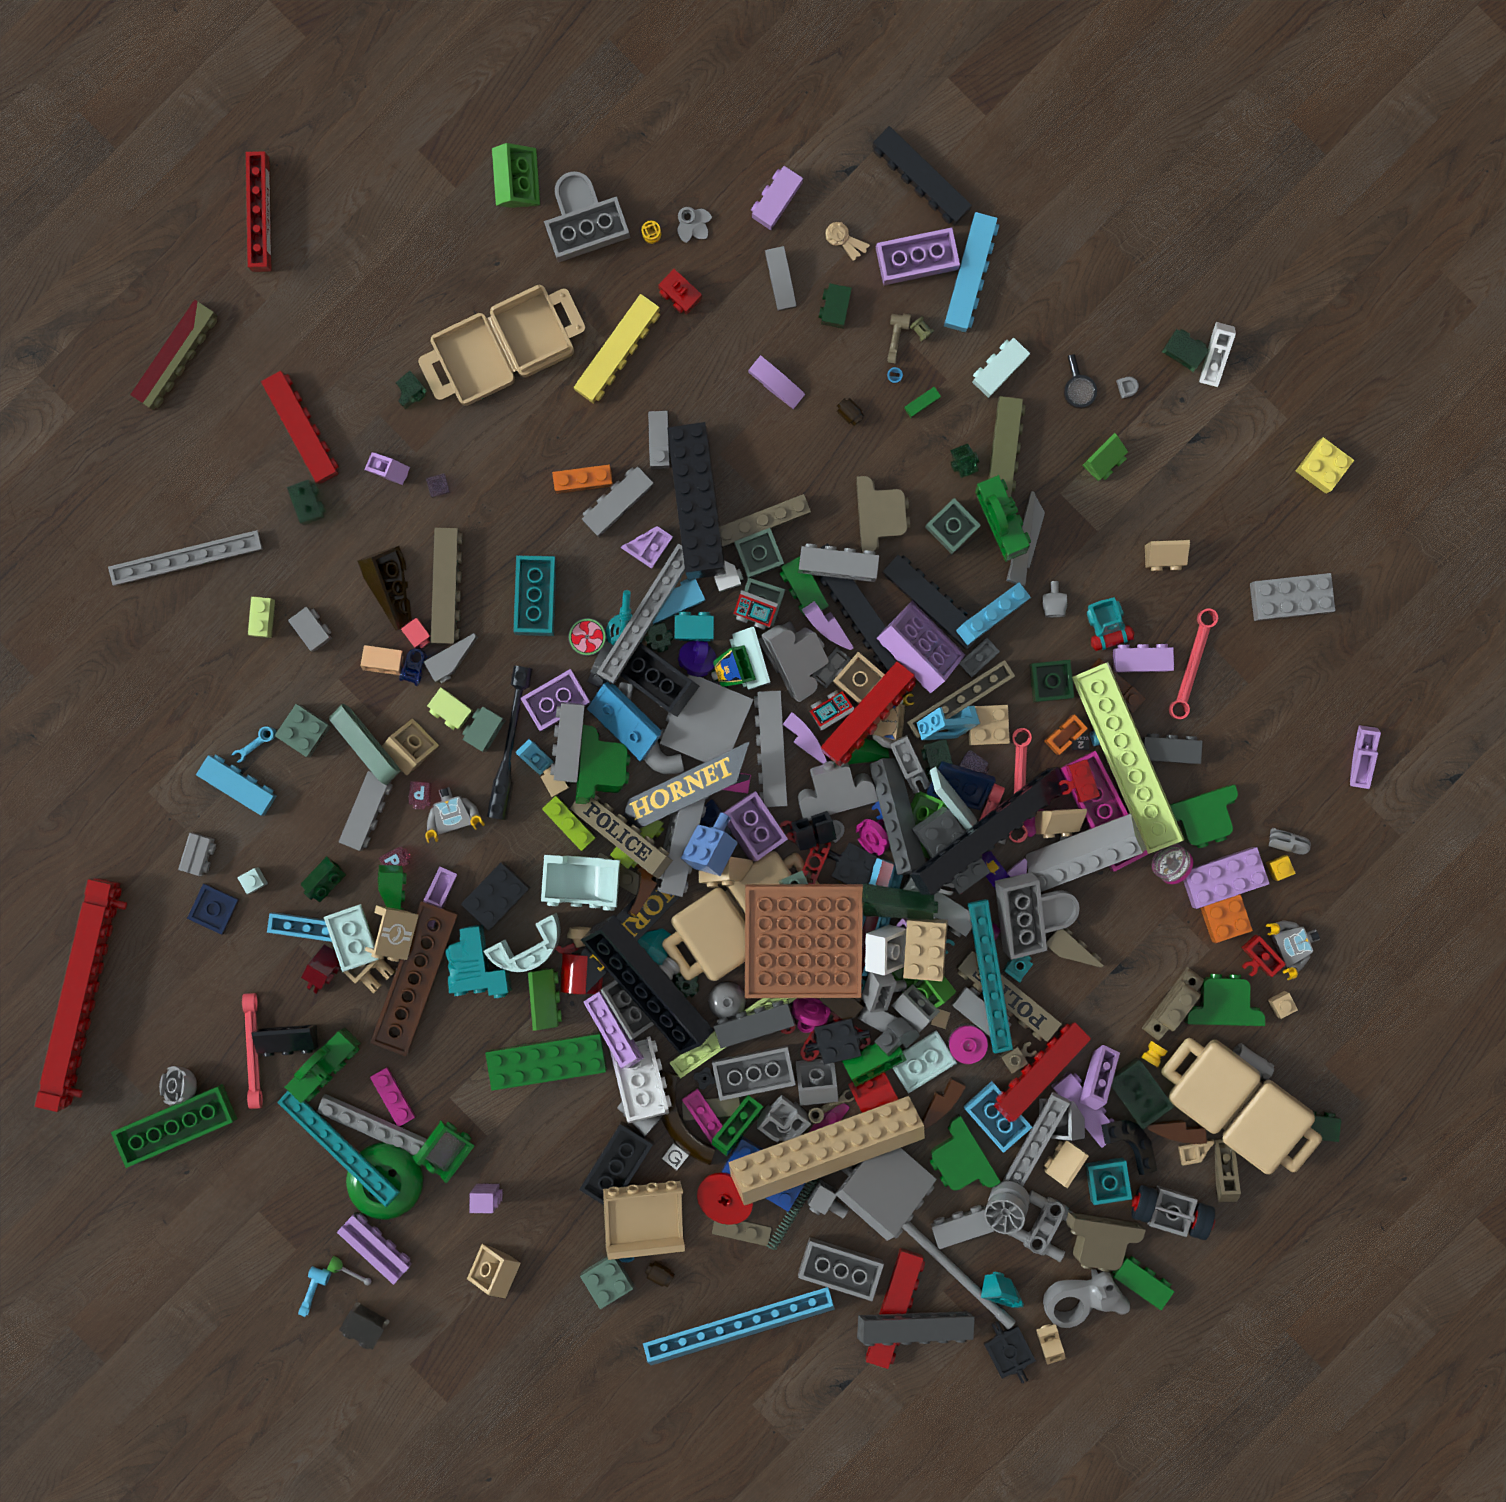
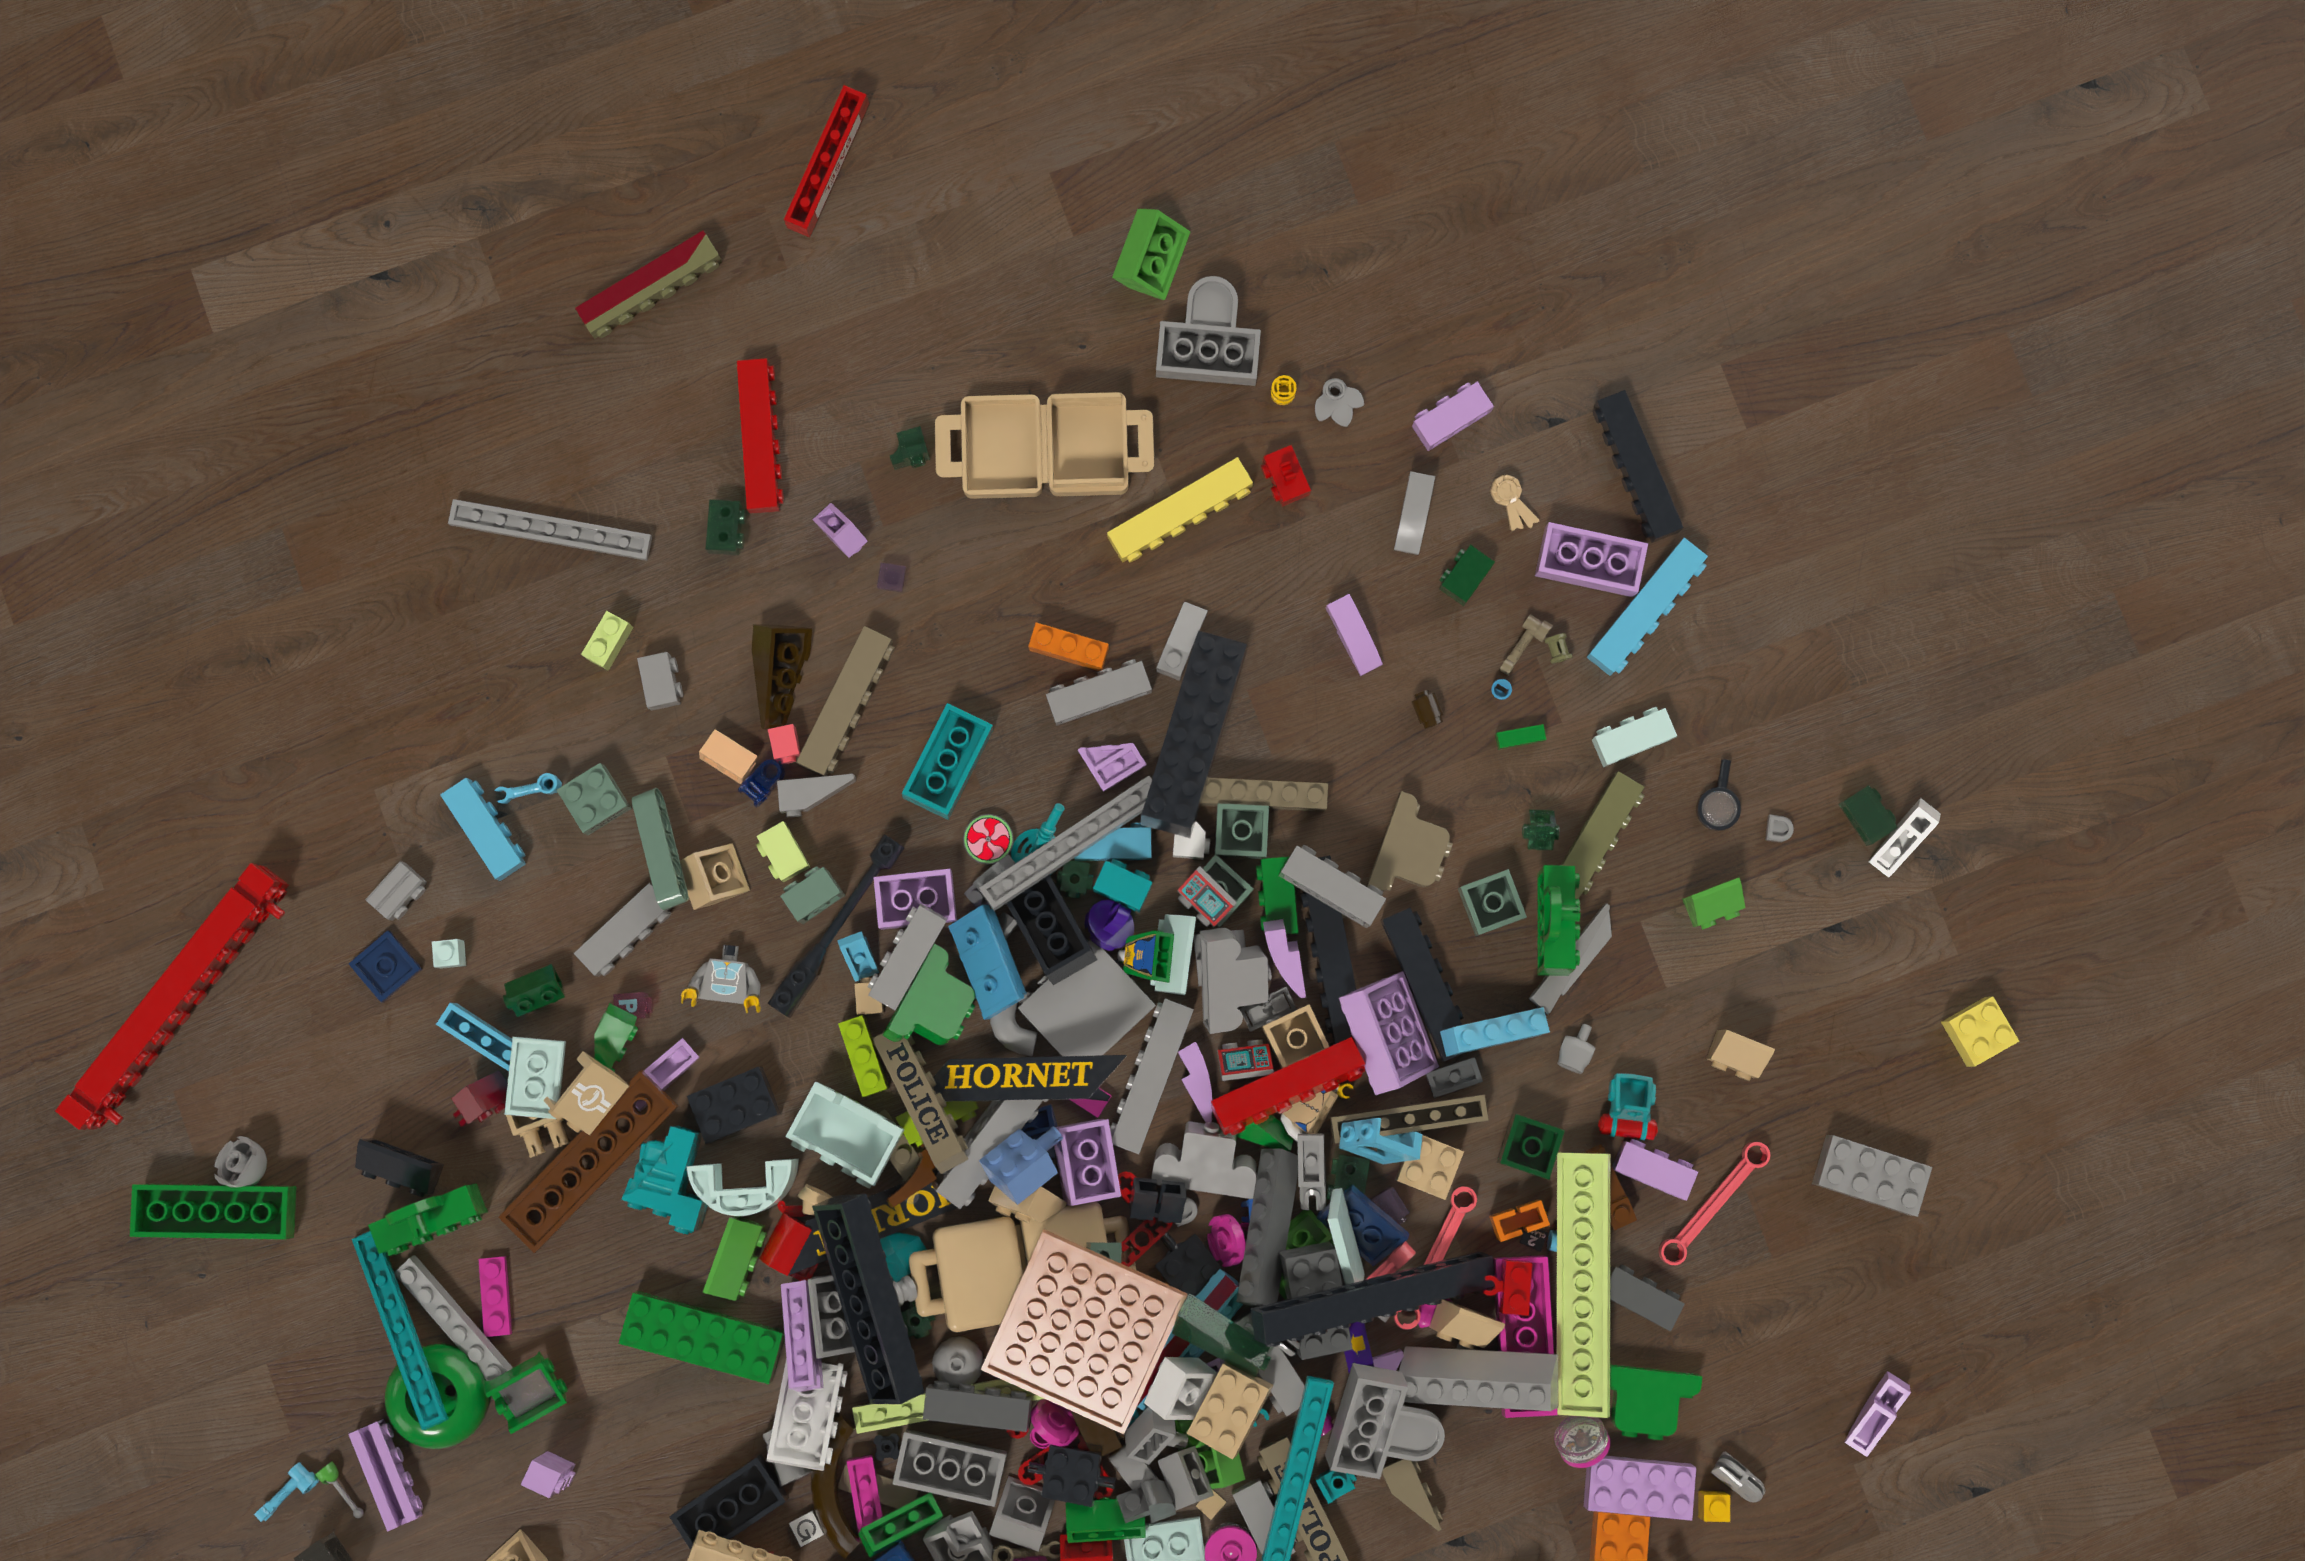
camera: 20 degrees right, 5 degrees down
(254, 1095) = (329, 1216): coral piece -> none
(420, 794) = (699, 940): clear pink brick -> none

